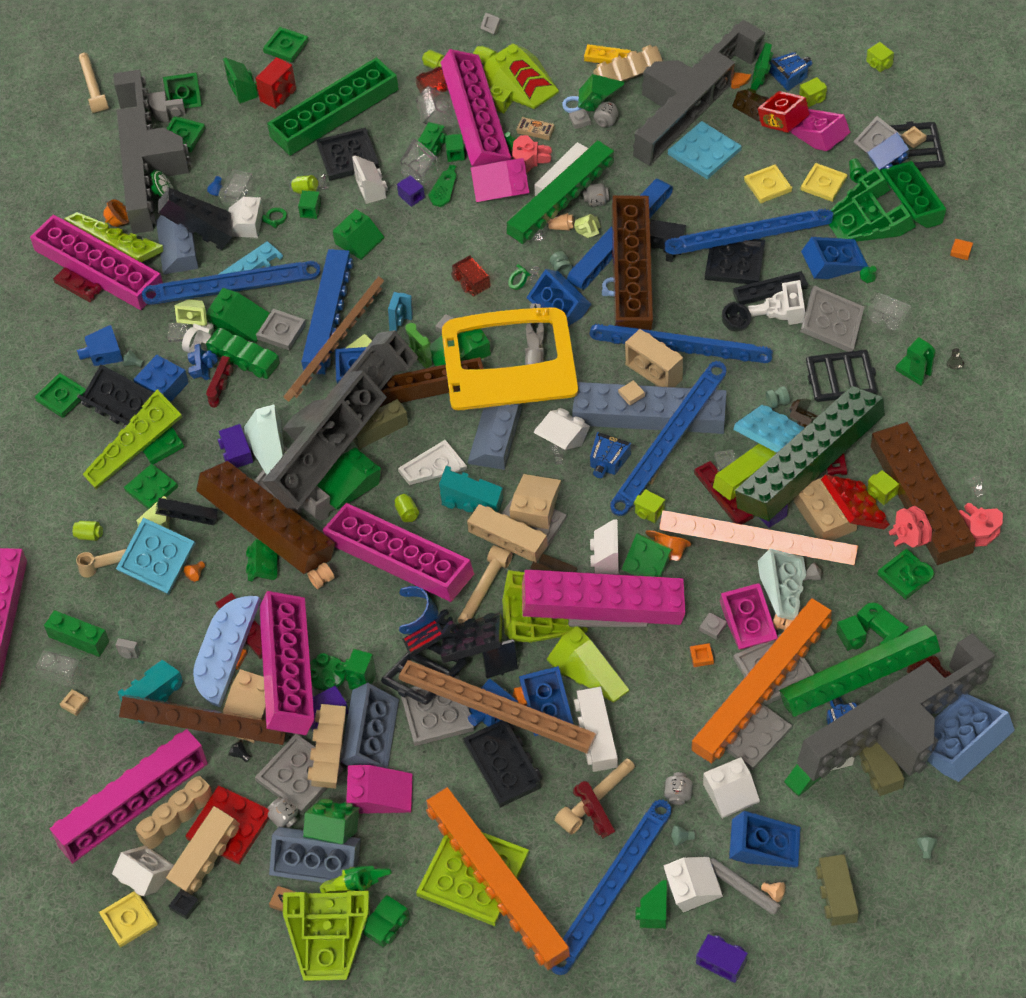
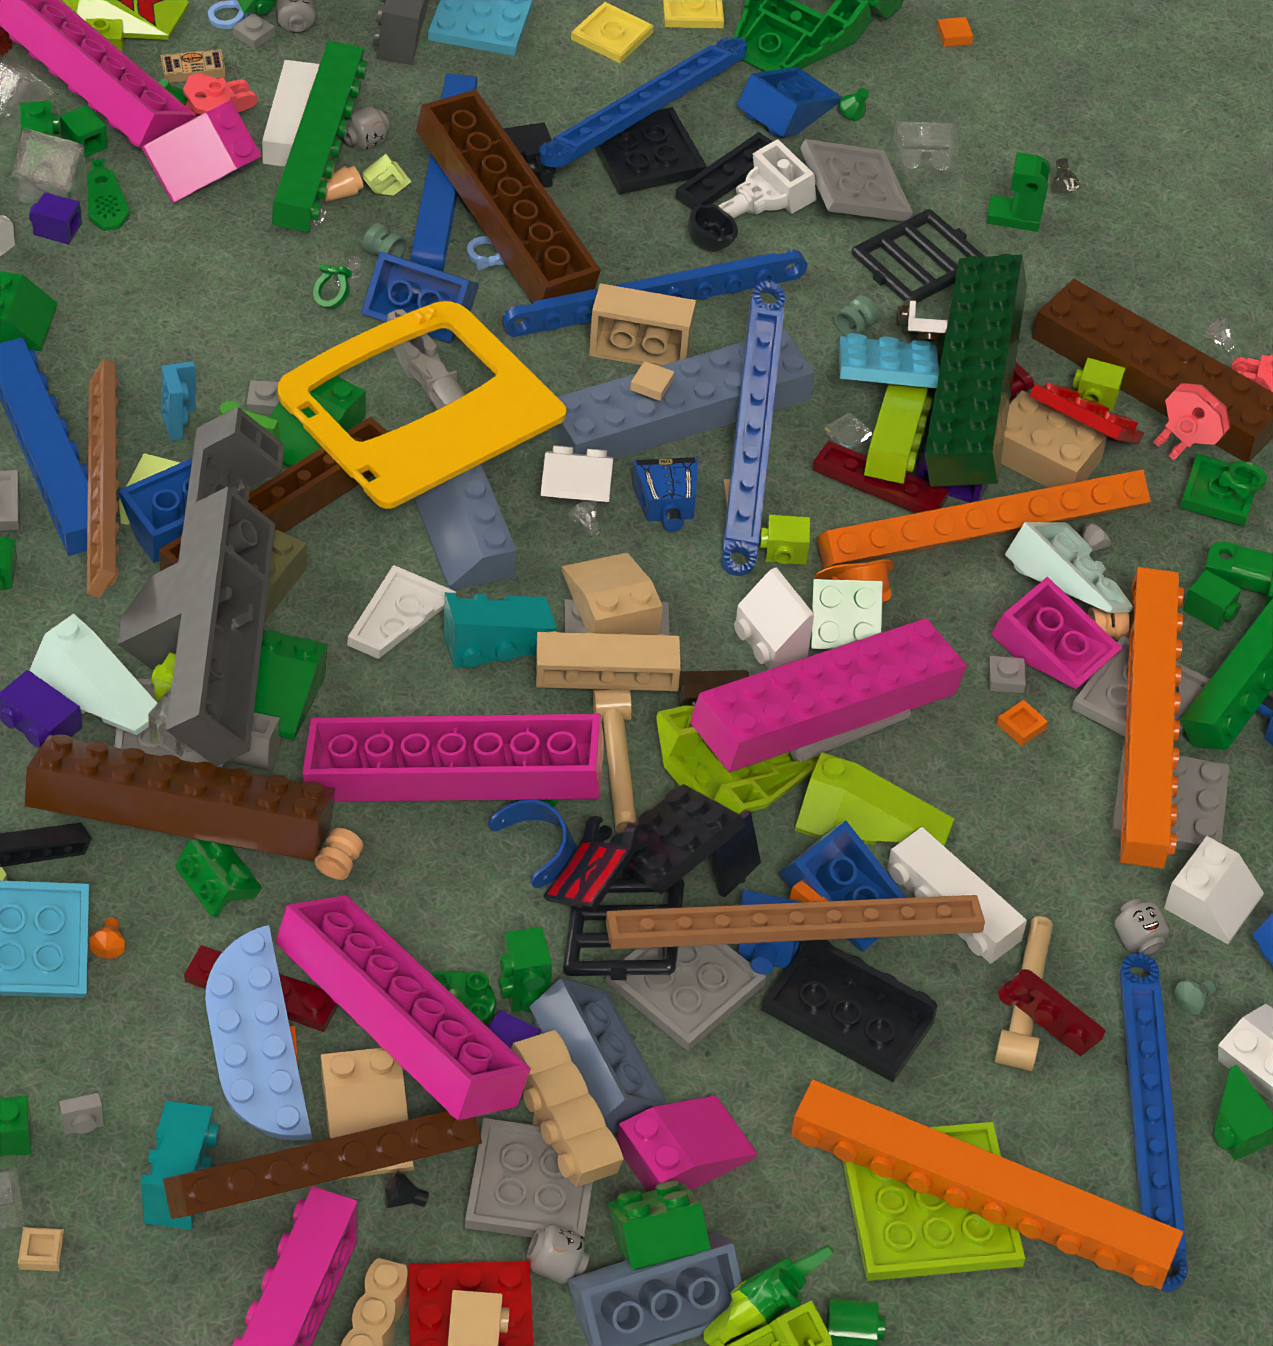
camera: 40 degrees left, 5 degrees down
(406, 508) = (405, 693): lime brick -> none
(470, 276) = (251, 309): clear red brick -> none

